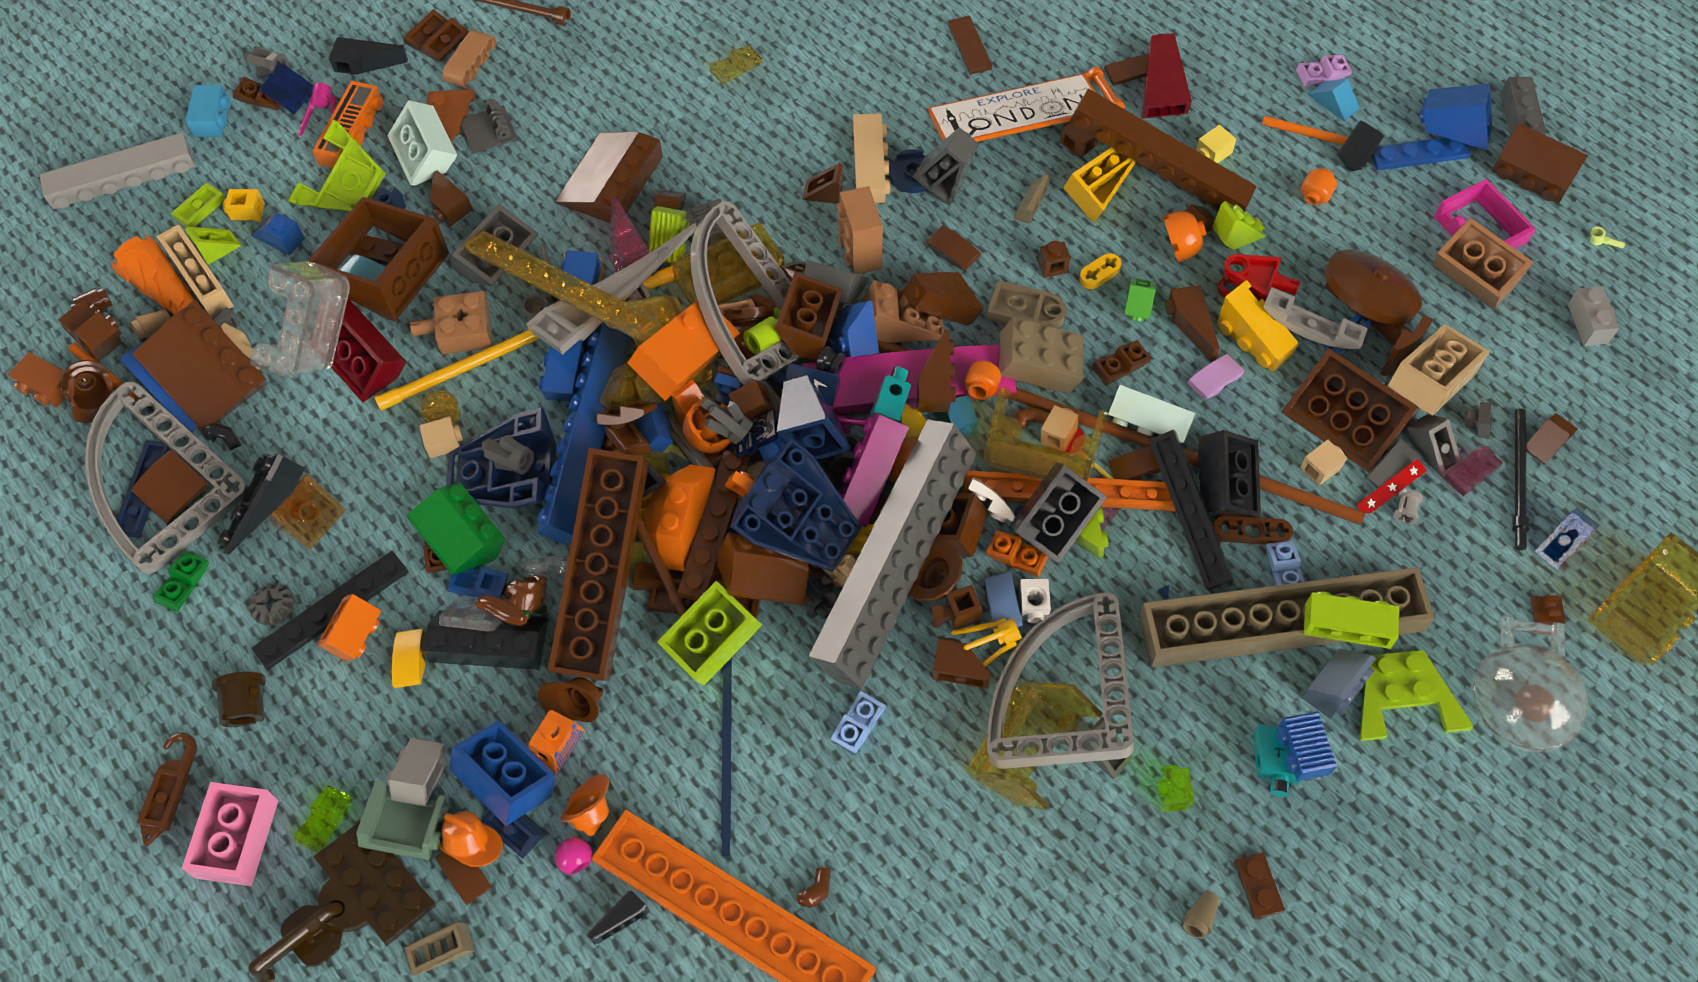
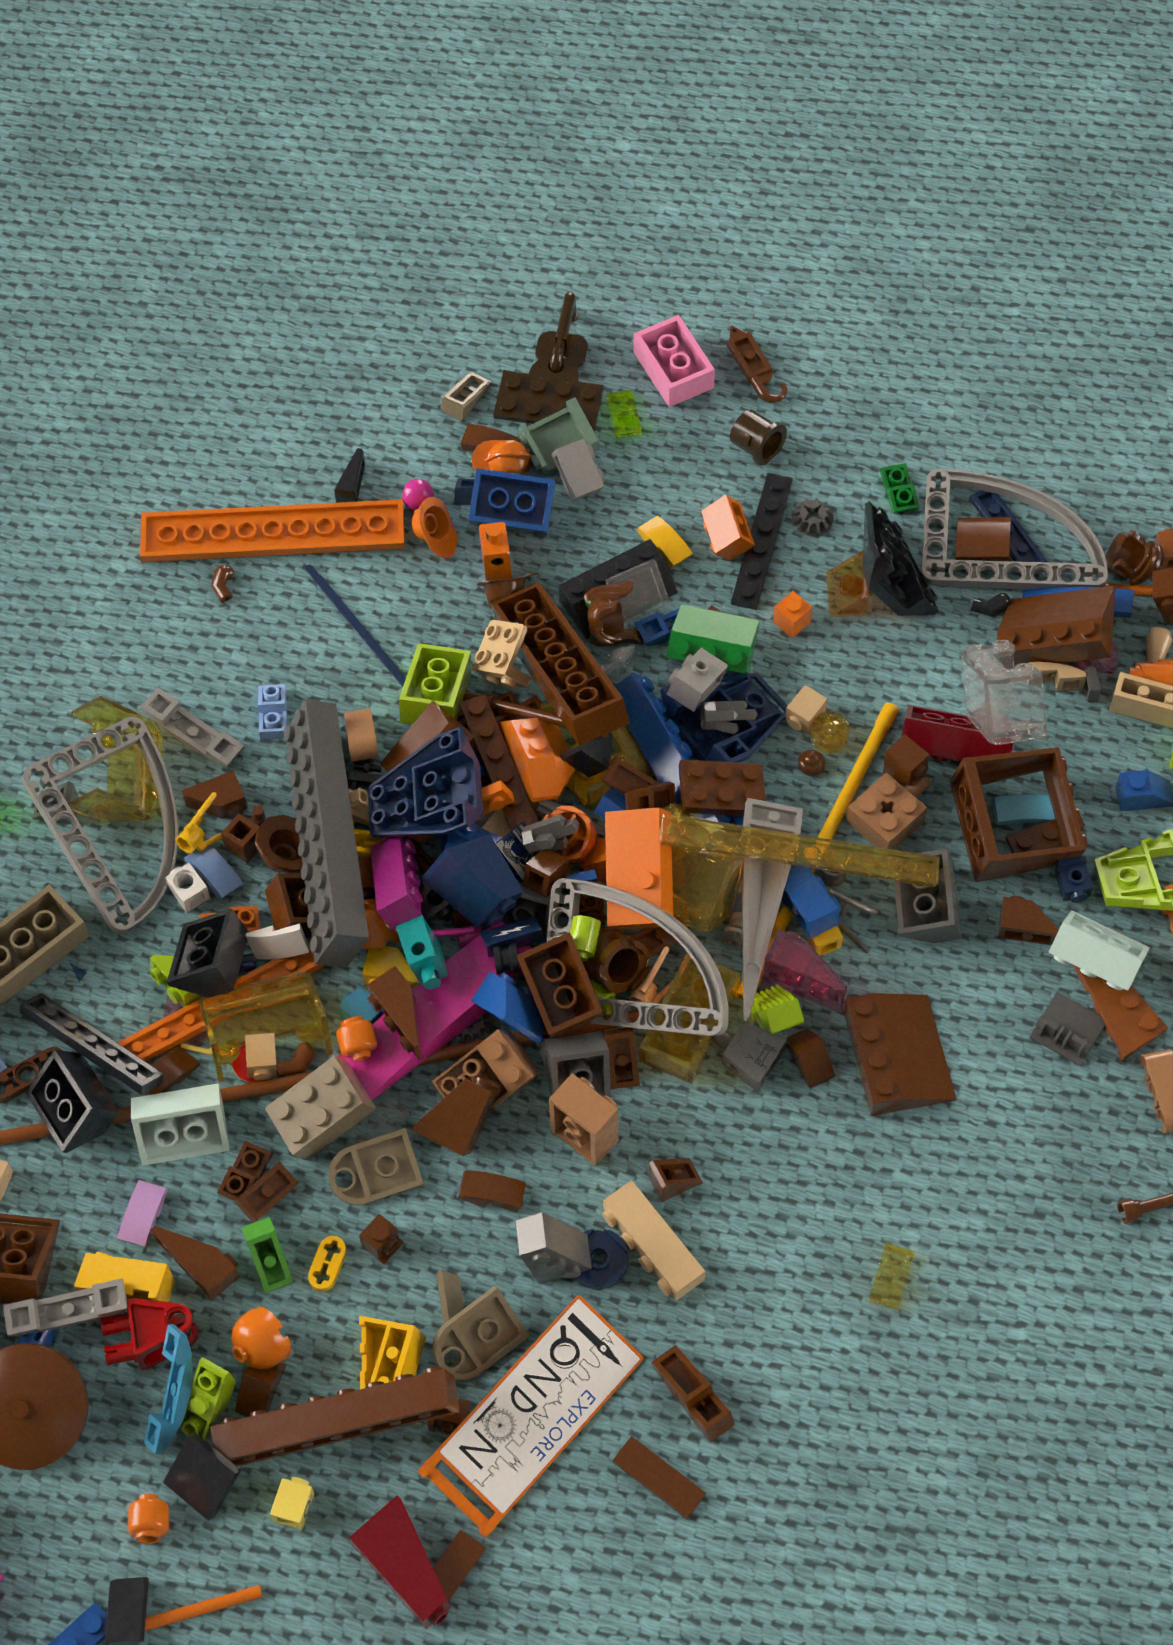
camera: 145 degrees right, 0 degrees up
(374, 518) = (792, 614): none -> orange brick
(416, 337) = (905, 761): none -> reddish brown slope
(475, 399) = (811, 762): none -> reddish brown plate
(503, 488) = (696, 679): none -> light grey brick
(565, 391) = (719, 786): none -> reddish brown plate
(633, 618) = (498, 654): none -> tan bracket
(802, 632) = (361, 735): none -> medium nougat beam
(913, 68) = (693, 1393): none -> reddish brown slope
(939, 744) = (190, 730): none -> light grey slope
(1029, 164) = (479, 1334): none -> dark tan tile
(1115, 334) = (266, 1192): none -> reddish brown plate
(1267, 233) = (163, 1426): none -> dark azure slope
(1268, 186) = (201, 1476): none -> black tile

